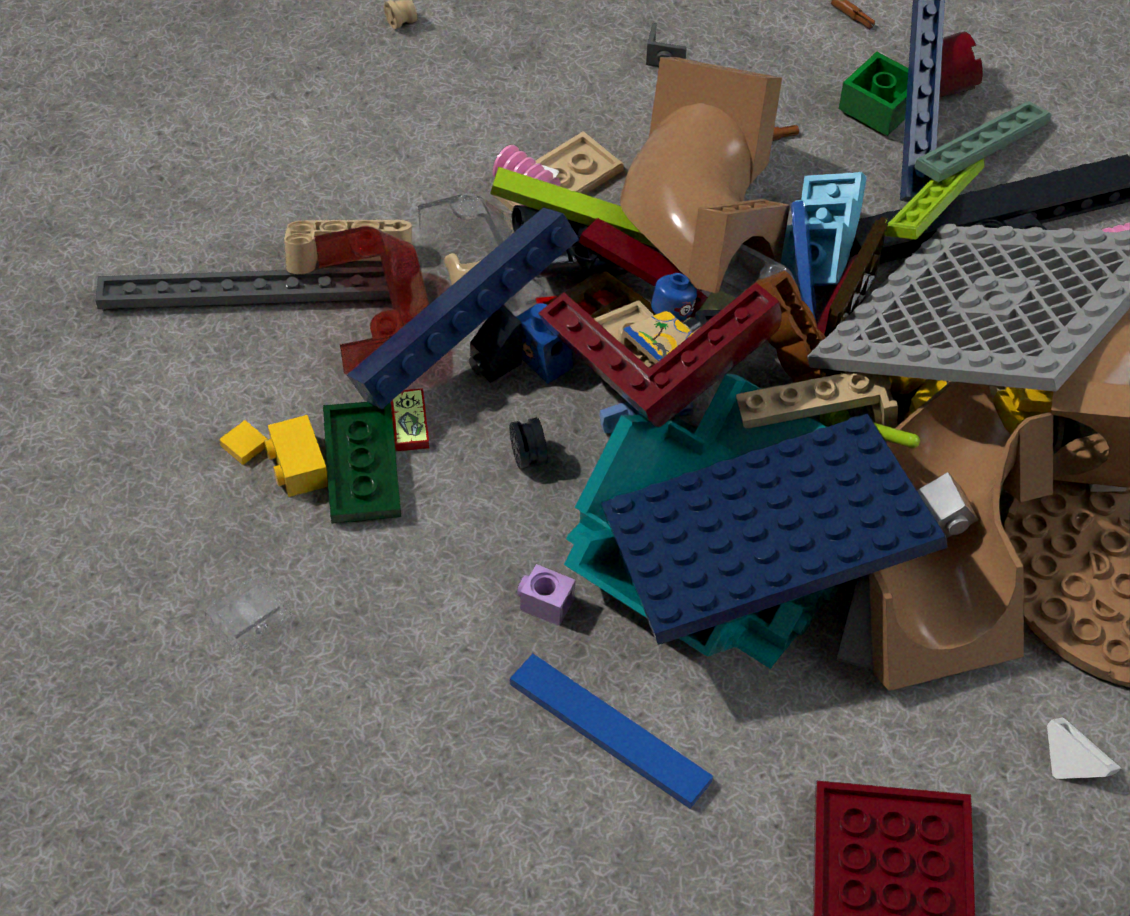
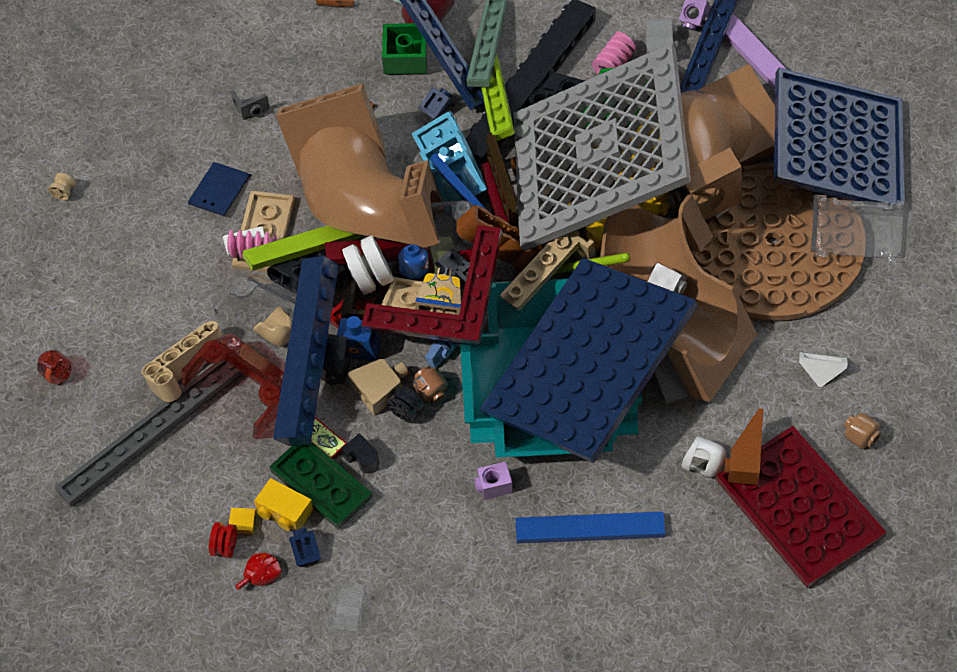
camera: 35 degrees left, 5 degrees up
(198, 441) = (222, 539): none -> red wheel
(208, 505) = (260, 570): none -> red piece
(218, 163) = (54, 366): none -> clear red head
(275, 513) = (304, 546): none -> dark blue bracket
(432, 462) = (362, 452): none -> black leg
(521, 397) = (377, 383): none -> tan torso
(553, 110) = (218, 188): none -> dark blue container
(578, 443) = (430, 384): none -> nougat head
(615, 264) = (366, 265): none -> white wheel
(836, 751) = (707, 450): none -> white helmet
(871, 165) = (436, 103): none -> dark blue bracket
(876, 779) = (746, 453): none -> dark orange slope
(1059, 868) = (862, 430): none -> medium nougat head

